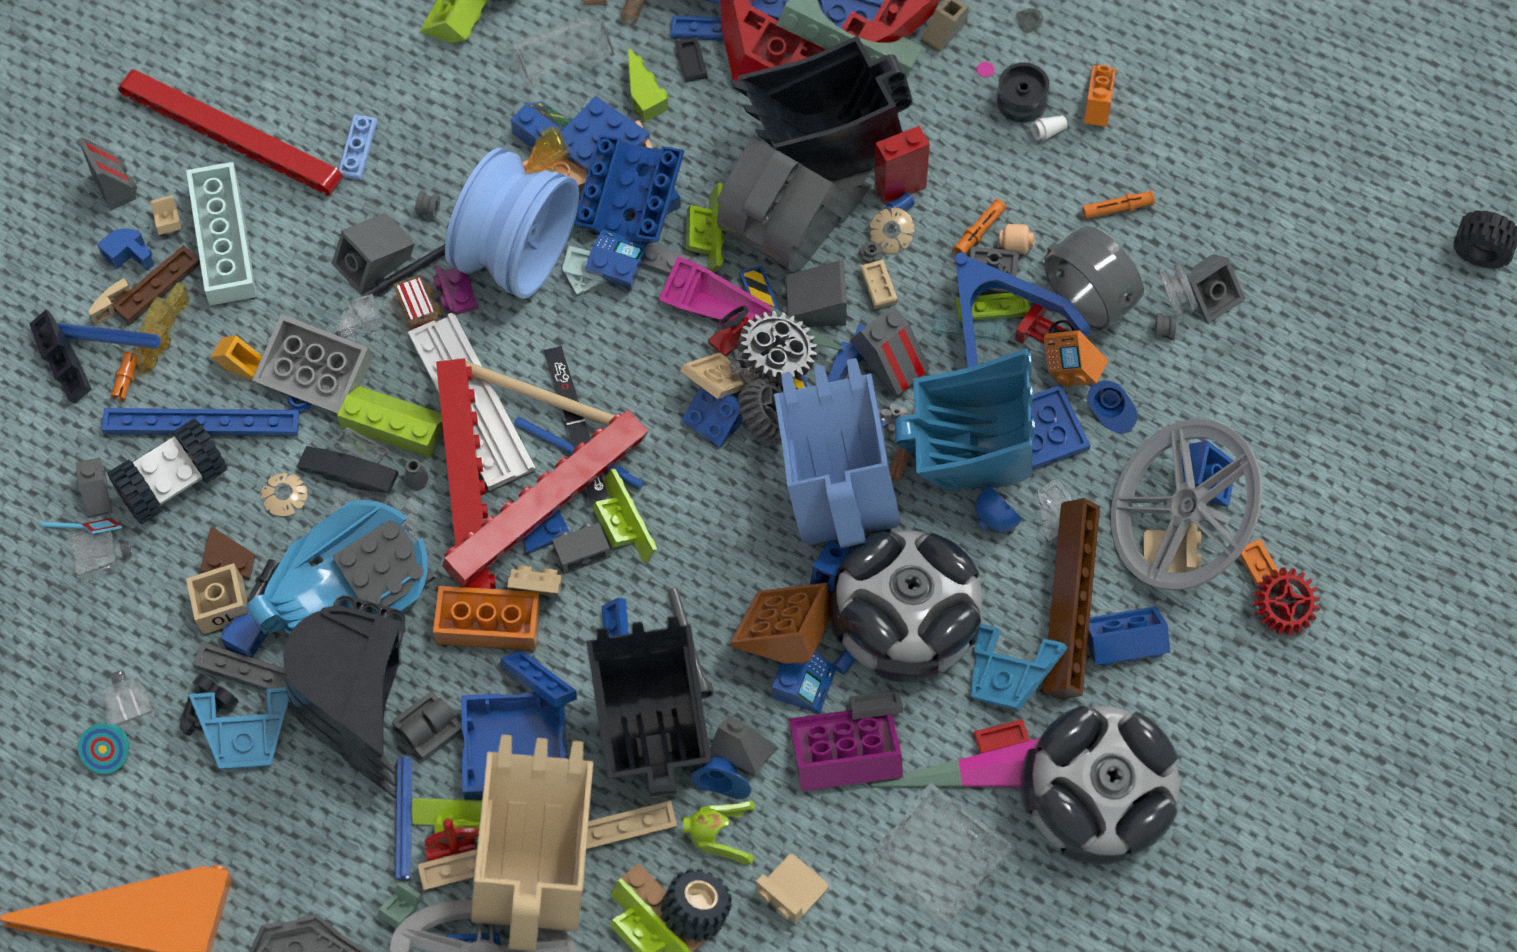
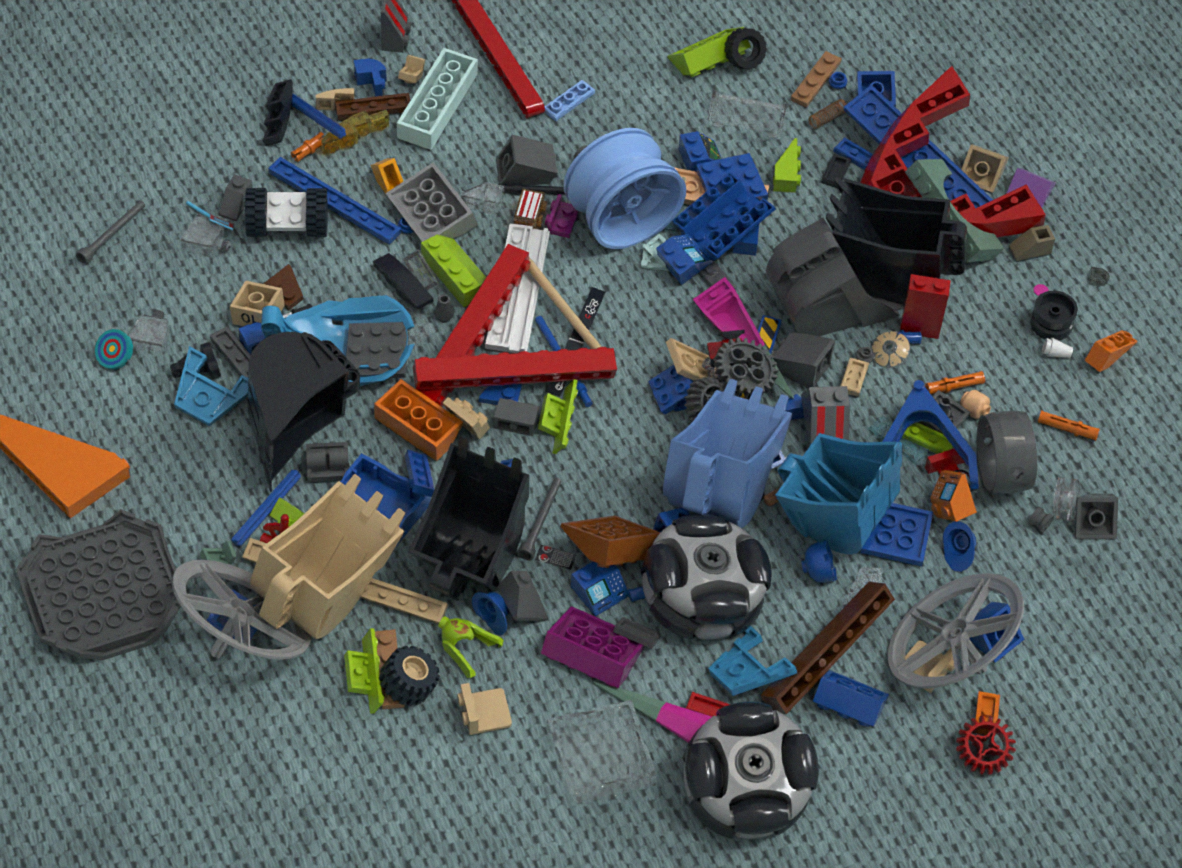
camera: 30 degrees right, 10 degrees down
(287, 503) = (352, 279): tan dish -> none
(548, 150) = (690, 163): clear yellow slope -> none
(703, 232) = (755, 279): lime bracket -> none
(733, 675) = (555, 557): none -> black sticker

